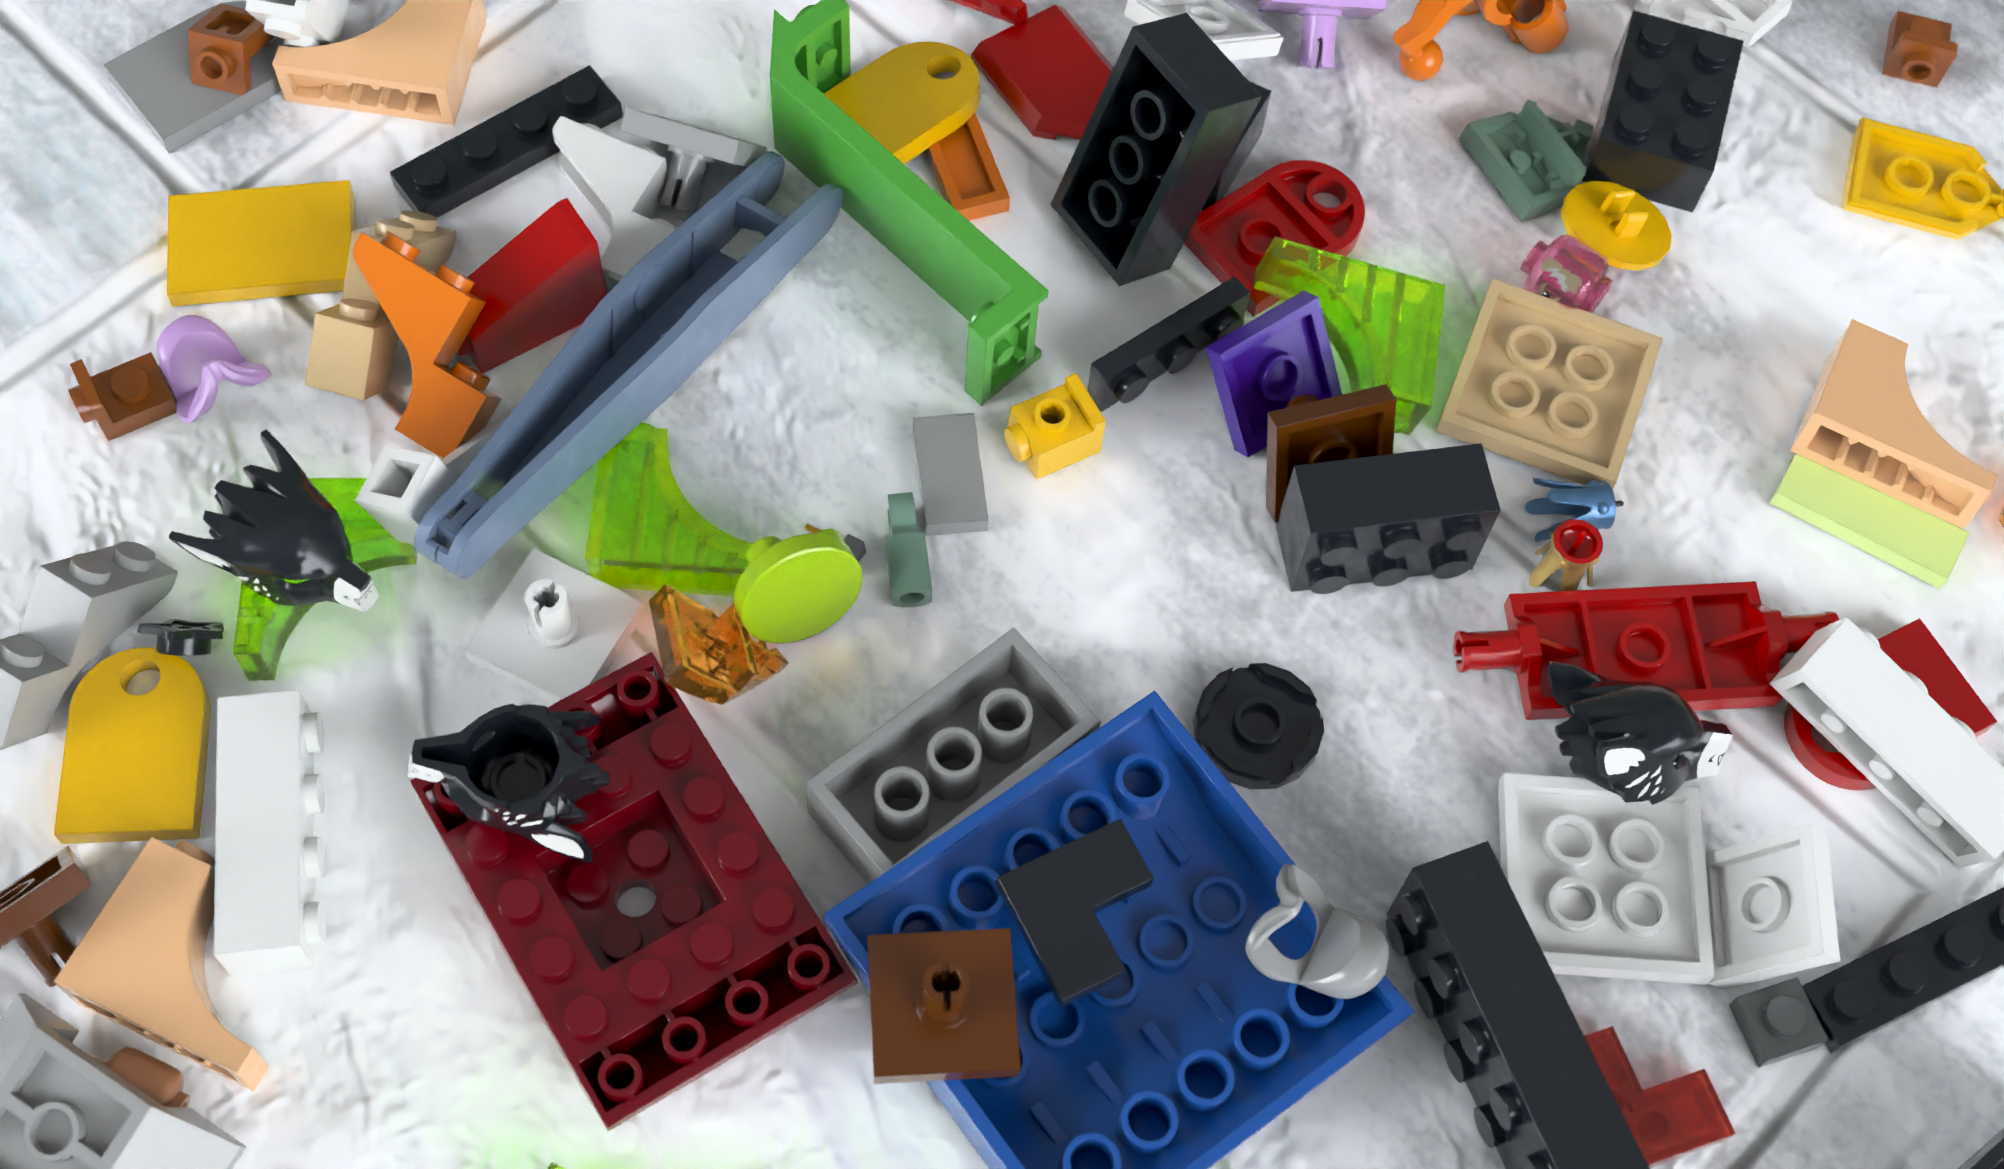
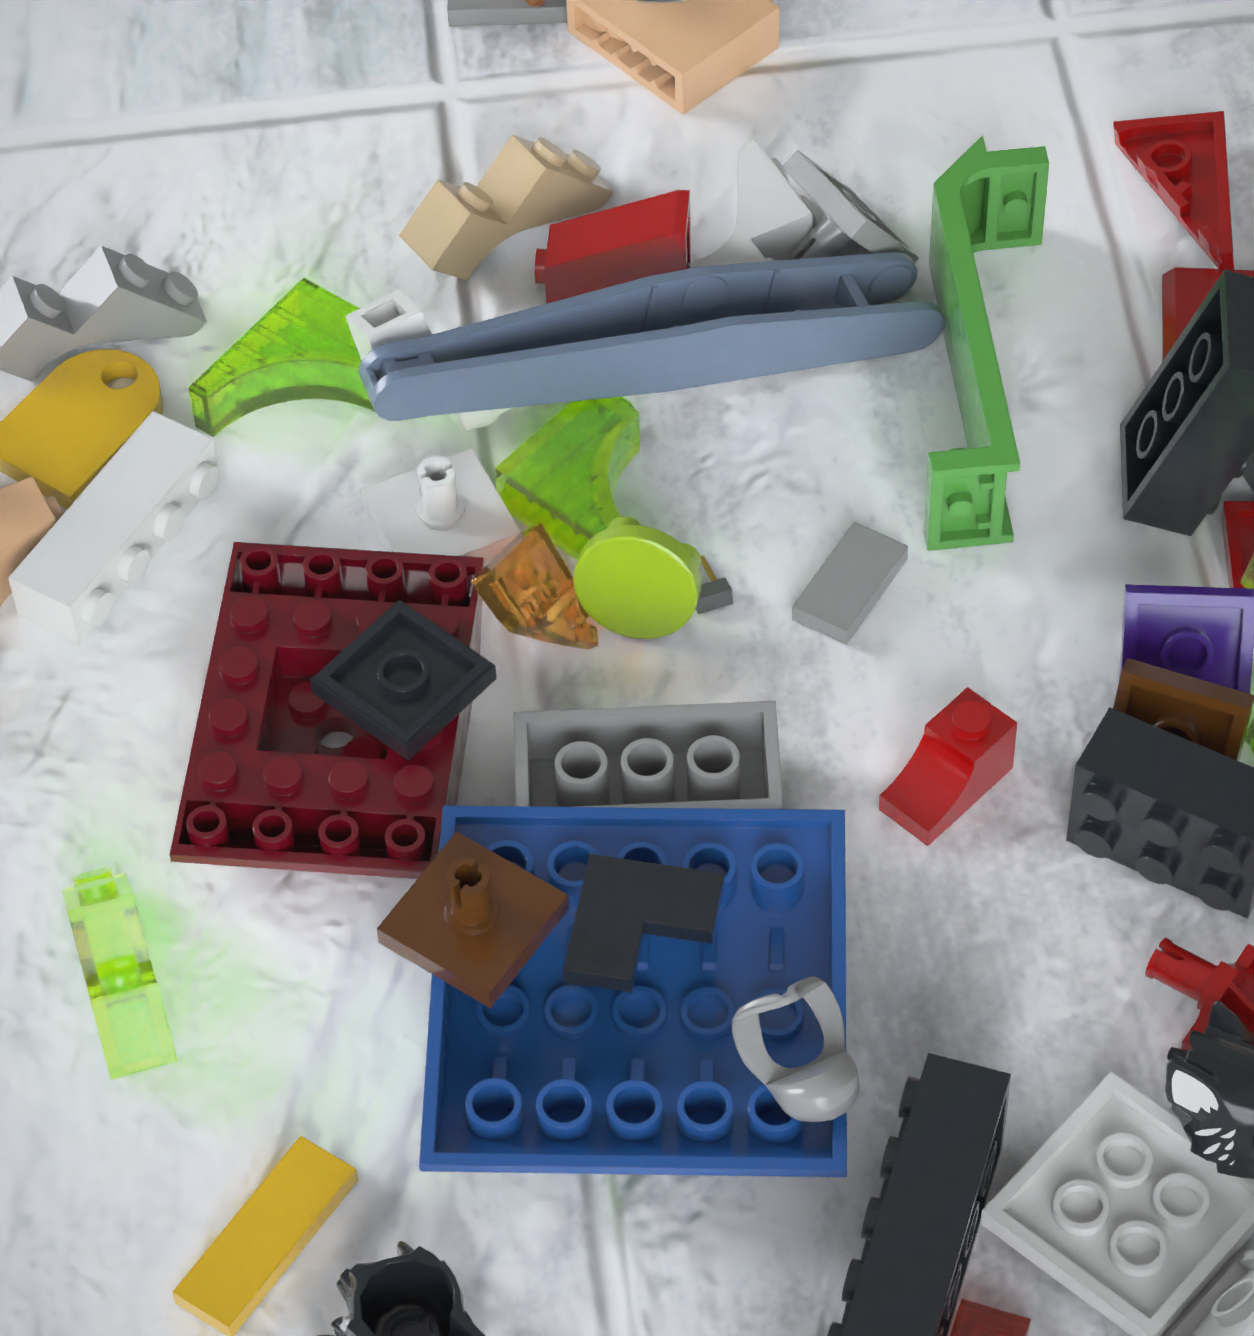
camera: 45 degrees right, 10 degrees down
(122, 396) = (267, 178): dark orange bracket -> none
(183, 636) = (169, 364): black plate -> none
(196, 359) = (342, 177): lavender piece -> none
(259, 242) = (453, 118): yellow tile -> none
(282, 533) = (282, 315): black piece -> none
(432, 319) = (517, 232): orange arch -> none
(503, 144) = (698, 146): black plate -> none
(518, 773) = (302, 568): black piece -> none
(689, 818) = (403, 679): none -> black tile
(903, 101) = (1060, 280): yellow tile -> none
(906, 554) = (758, 617): sand green bar -> none
(968, 172) = (1075, 358): orange tile -> none
(1054, 446) = (963, 595): yellow brick -> none
(1167, 345) = (1097, 582): black plate -> none
(1170, 590) = (954, 765): none -> red arch
(1259, 725) = (939, 918): black tile -> none

